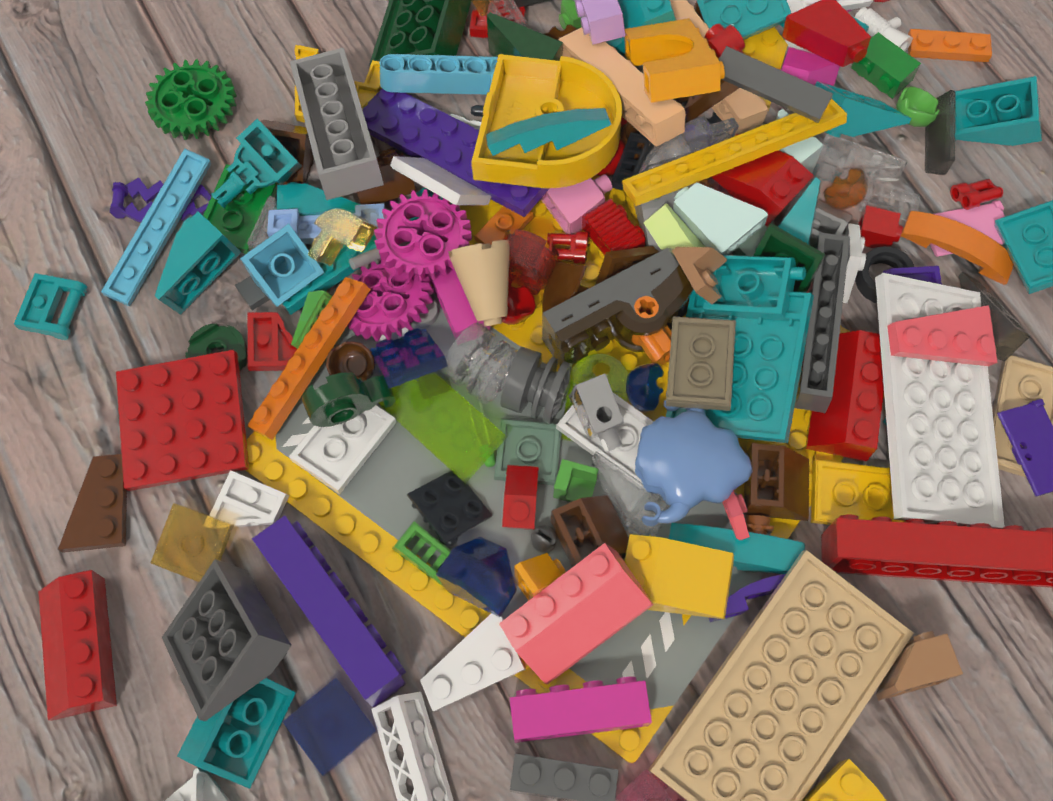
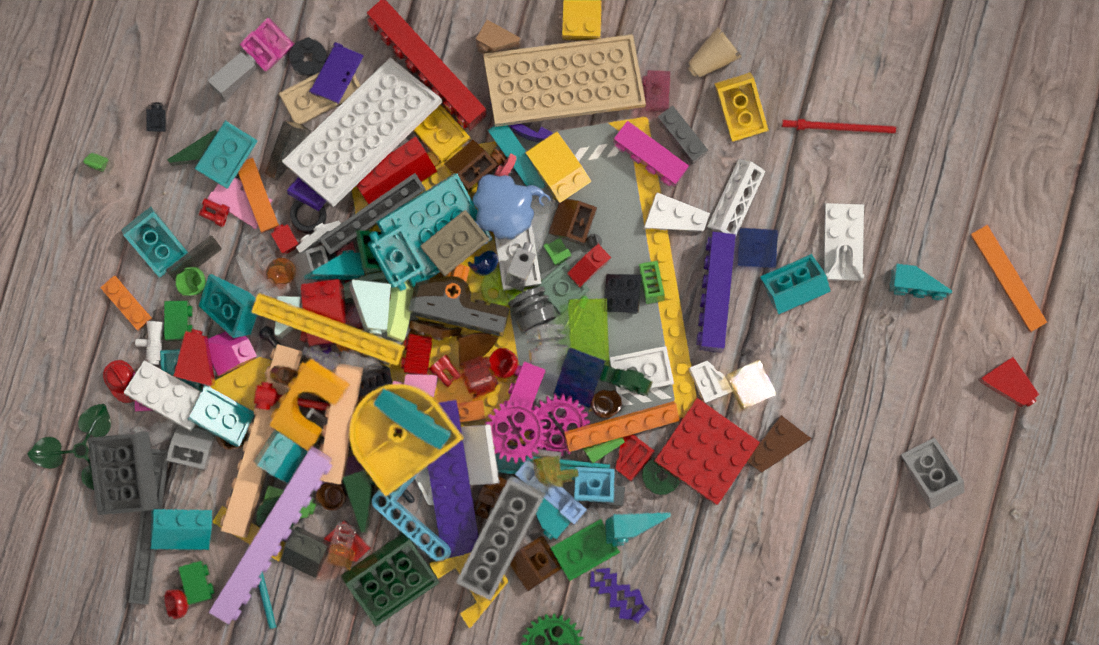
camera: 140 degrees left, 15 degrees up
(42, 301) = (725, 583): teal plate -> none
(76, 645) = (838, 384): red slope -> none
(156, 227) = (633, 577): medium azure tile -> none
(224, 639) = (771, 319): dark grey slope -> none
(257, 163) = (556, 555): teal brick -> none
(480, 575) = (637, 247): clear blue slope -> none
(484, 278) = (511, 376): tan cone -> none
(536, 574) = (614, 222): light orange slope -> none
(576, 613) = (616, 189): coral slope -> none
(698, 266) = (411, 287): medium nougat slope -> none
(774, 85) = (278, 341): dark grey tile -> none
(946, 337) = (328, 151): coral wing -> none

